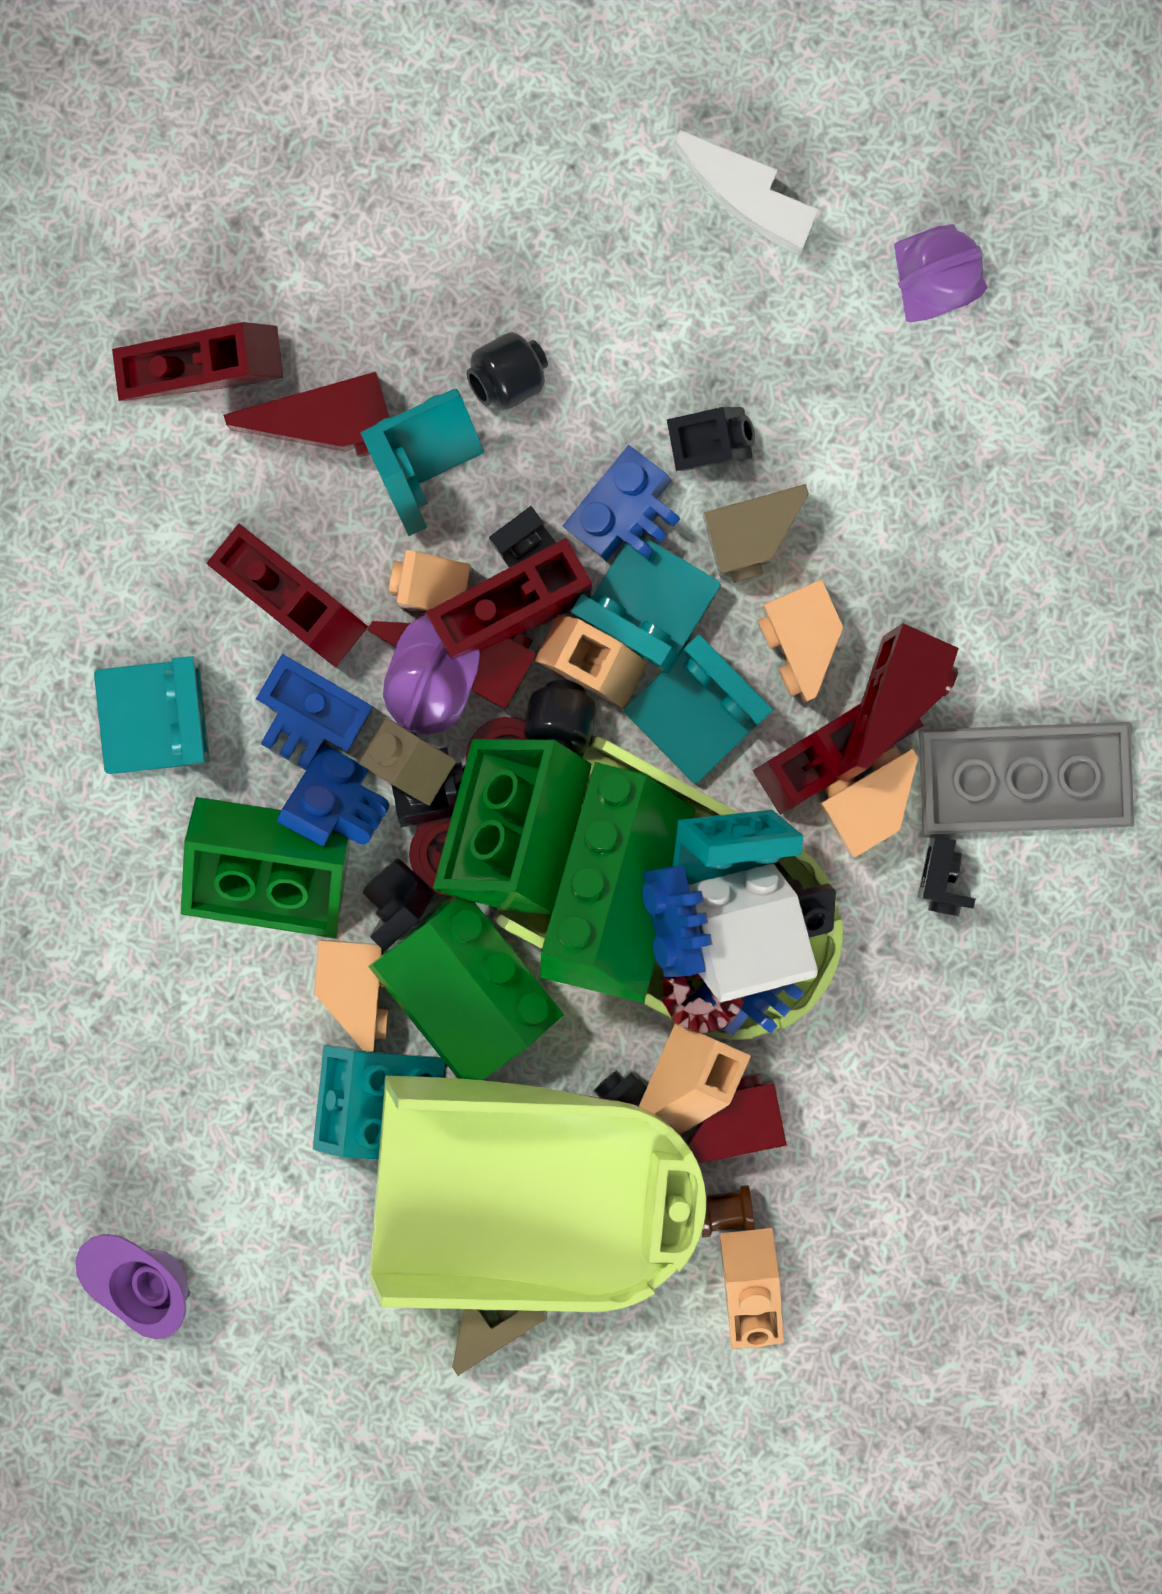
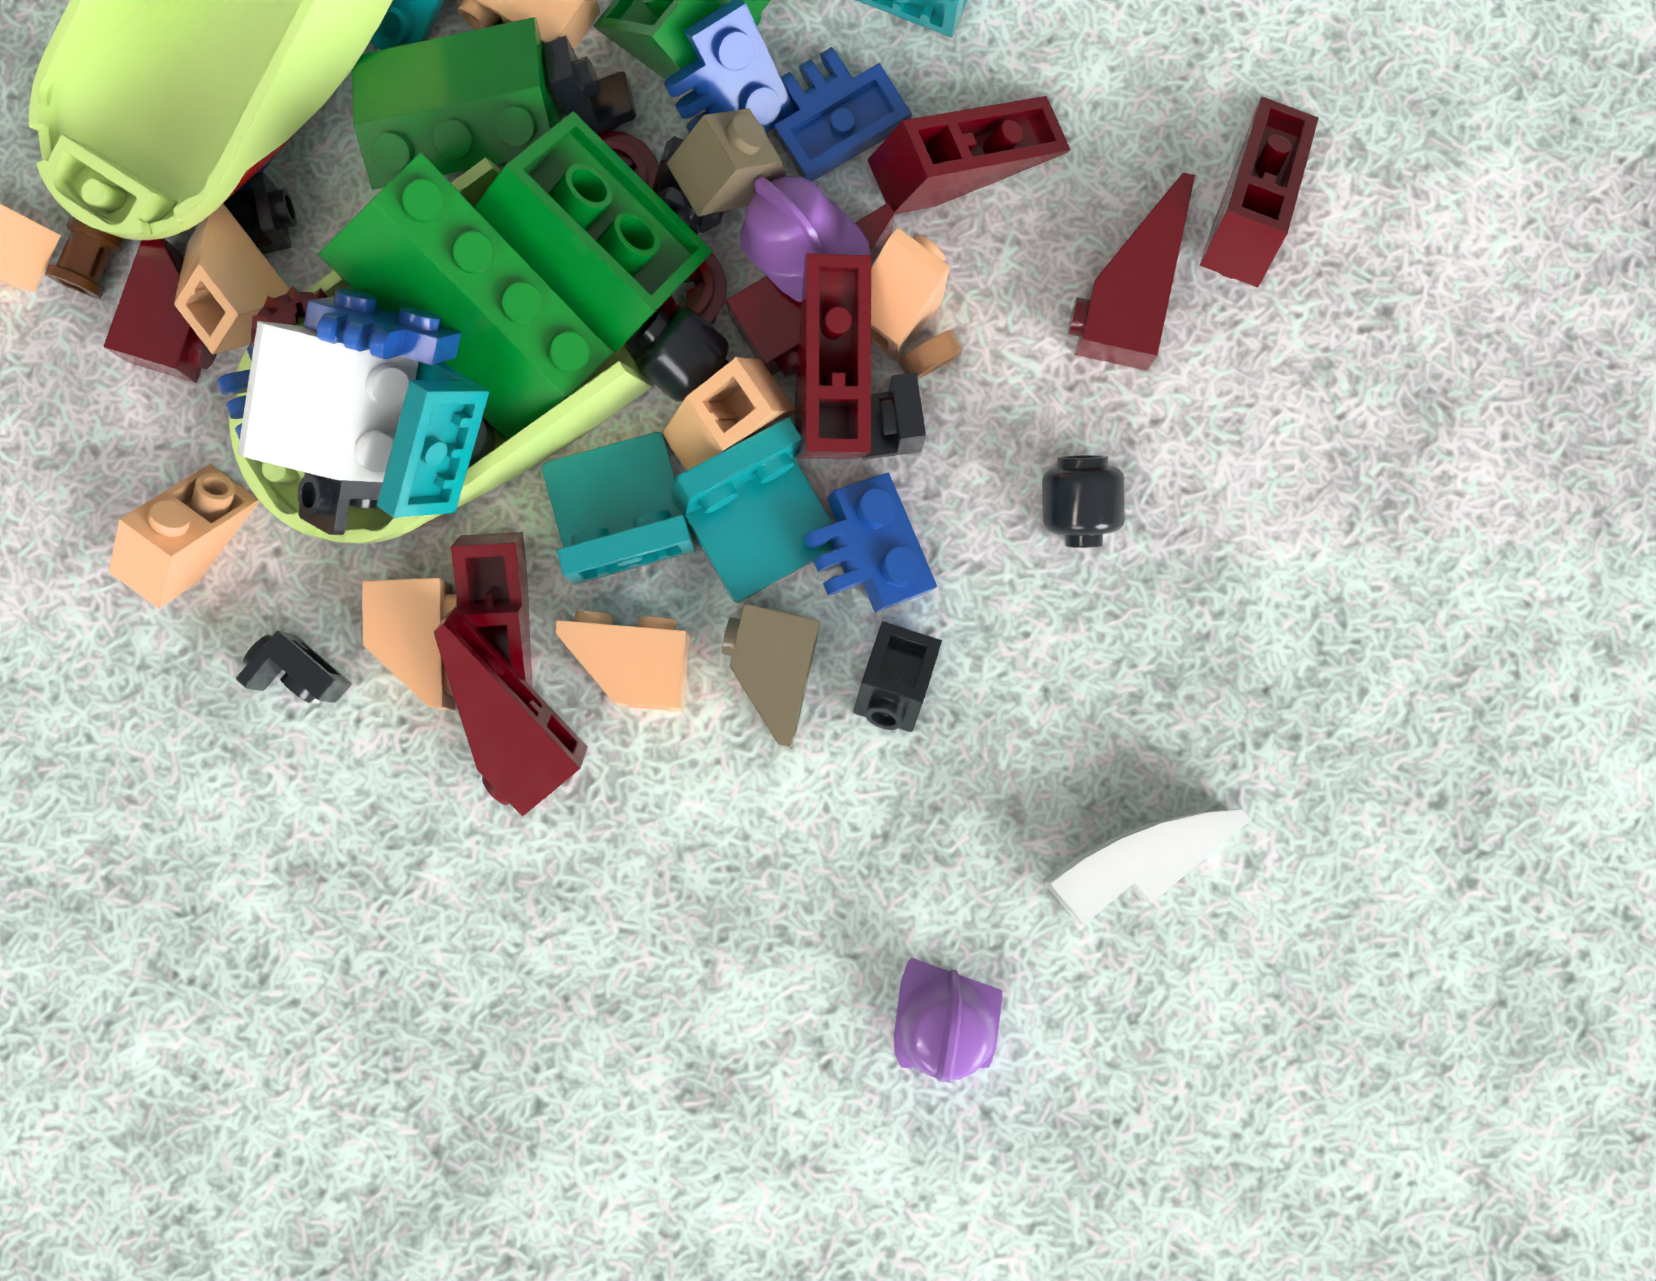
camera: 120 degrees right, 5 degrees down
(419, 447) = (1055, 350): teal bracket -> none
(459, 540) = (931, 354): none -> medium nougat tile
(890, 1016) = (179, 534): none -> light nougat slope
(1026, 778) = (351, 819): light grey tile -> none

